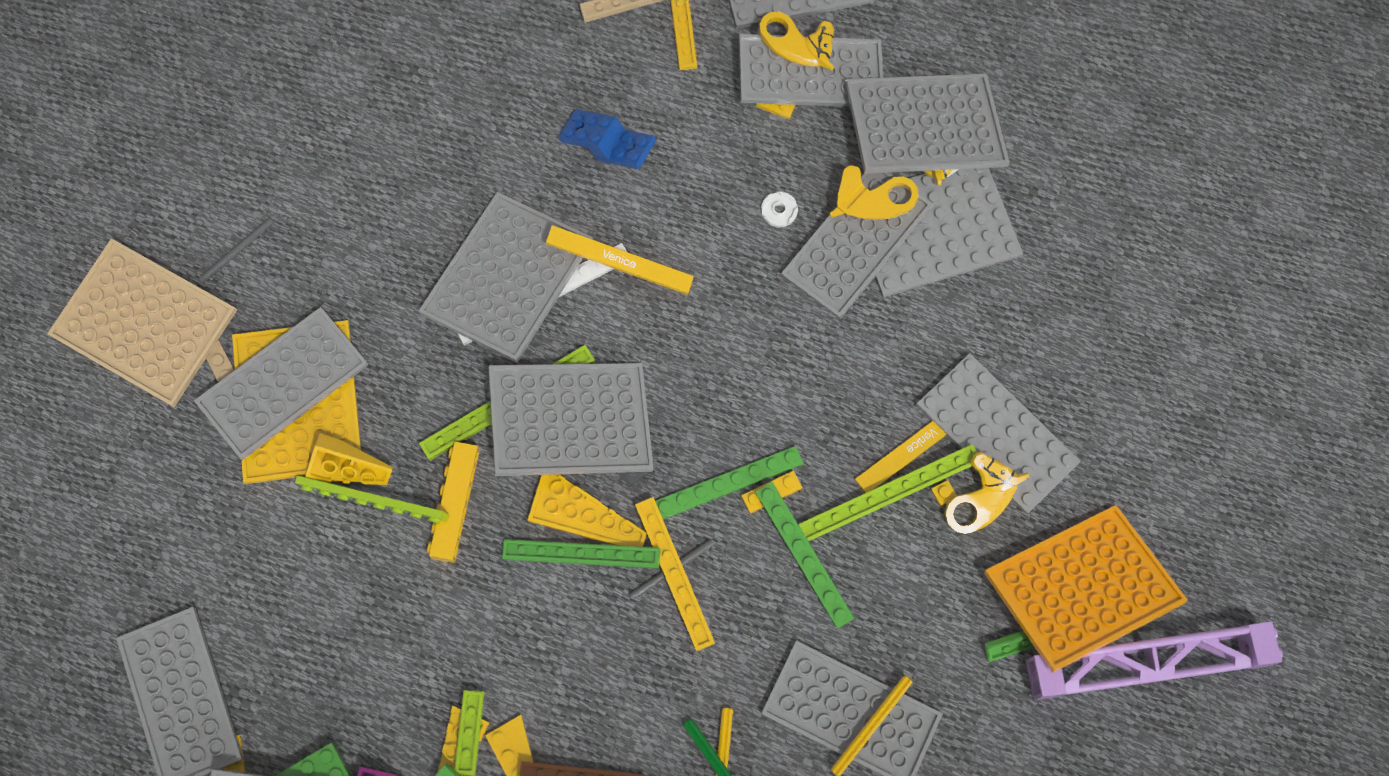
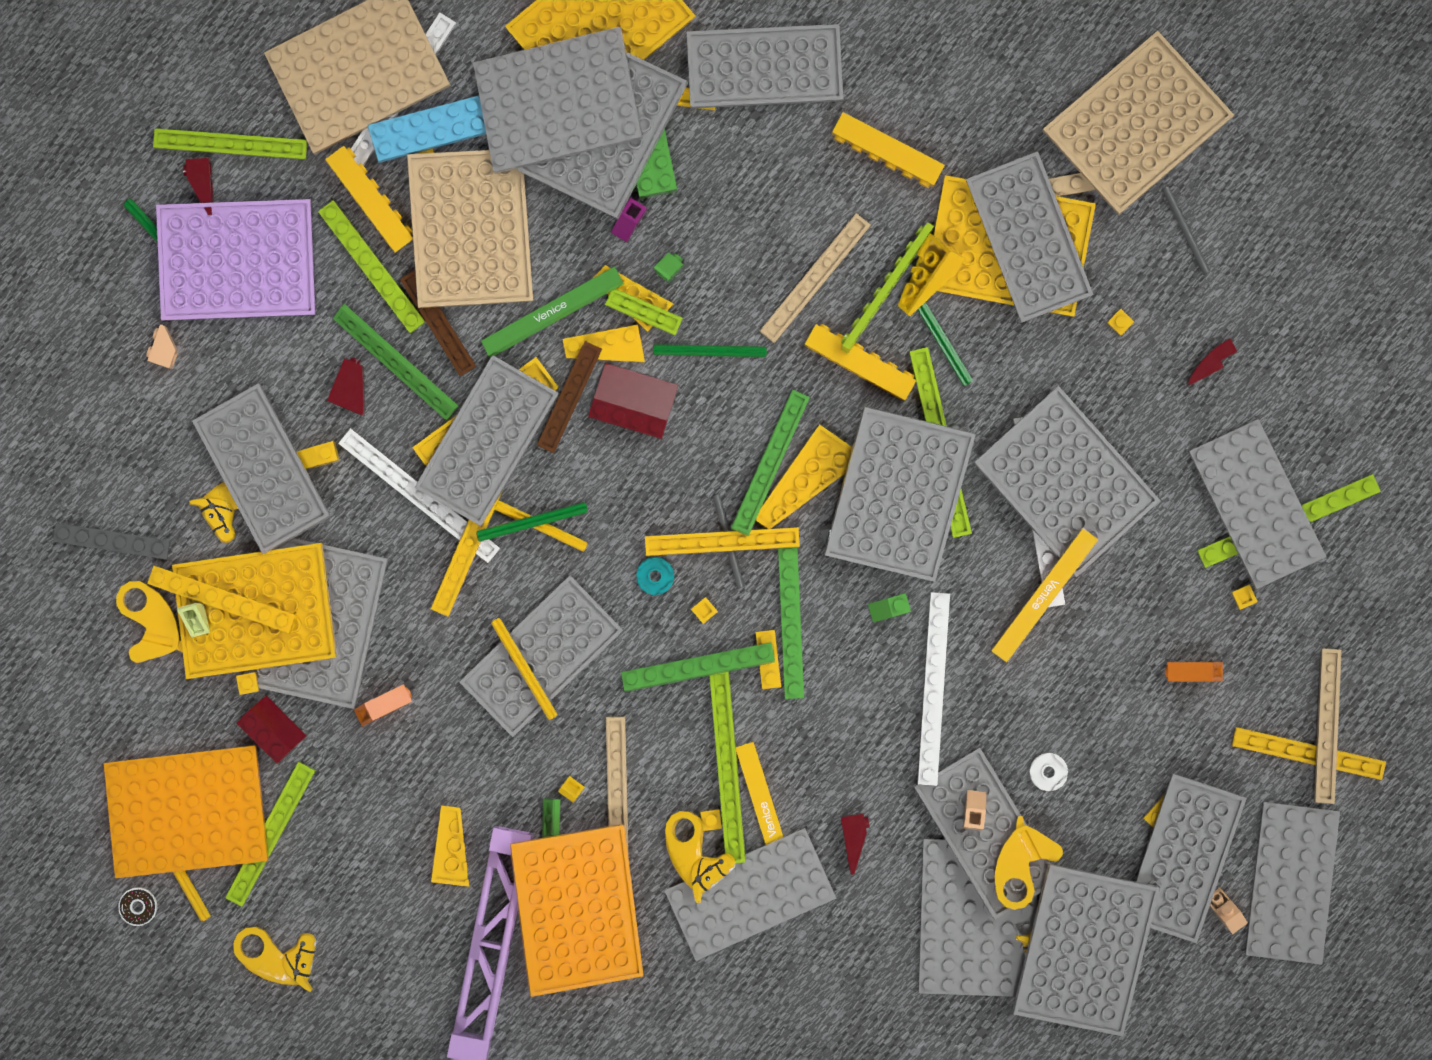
camera: 110 degrees right, 15 degrees up
(233, 547) = (887, 149): none -> yellow brick
(341, 279) = (1120, 322): none -> yellow plate
(354, 188) = (1212, 361): none -> dark red slope
(384, 575) = (815, 278): none -> tan tile
(412, 428) = (944, 344): none -> axle
(416, 723) = (669, 267): none -> bright green slope
(473, 109) = (1257, 504): none -> light grey plate
(480, 83) = (1314, 510): none -> lime plate
(489, 654) = (708, 350): none -> green axle
(561, 96) = (1244, 597): none -> yellow plate
(564, 712) = (633, 401): none -> slope
(607, 139) = (1178, 626): blue bracket -> none
(643, 113) = (1194, 671): none -> orange slope
(681, 395) = (889, 607): none -> bright green slope
(727, 640) = (647, 584): none -> teal tile
(742, 330) = (933, 689): none -> white plate
(747, 568) = (704, 610): none -> yellow plate
(794, 47) = (1212, 849): yellow animal -> none
(842, 252) = (974, 810): none -> light nougat slope
(845, 21) = (1227, 911): none -> light nougat slope
(907, 355) = (854, 835): none -> dark red slope
(935, 599) = (617, 773): none -> tan tile
(969, 636) = (571, 789): none -> yellow plate
(1083, 735) = (449, 853): none -> yellow wing

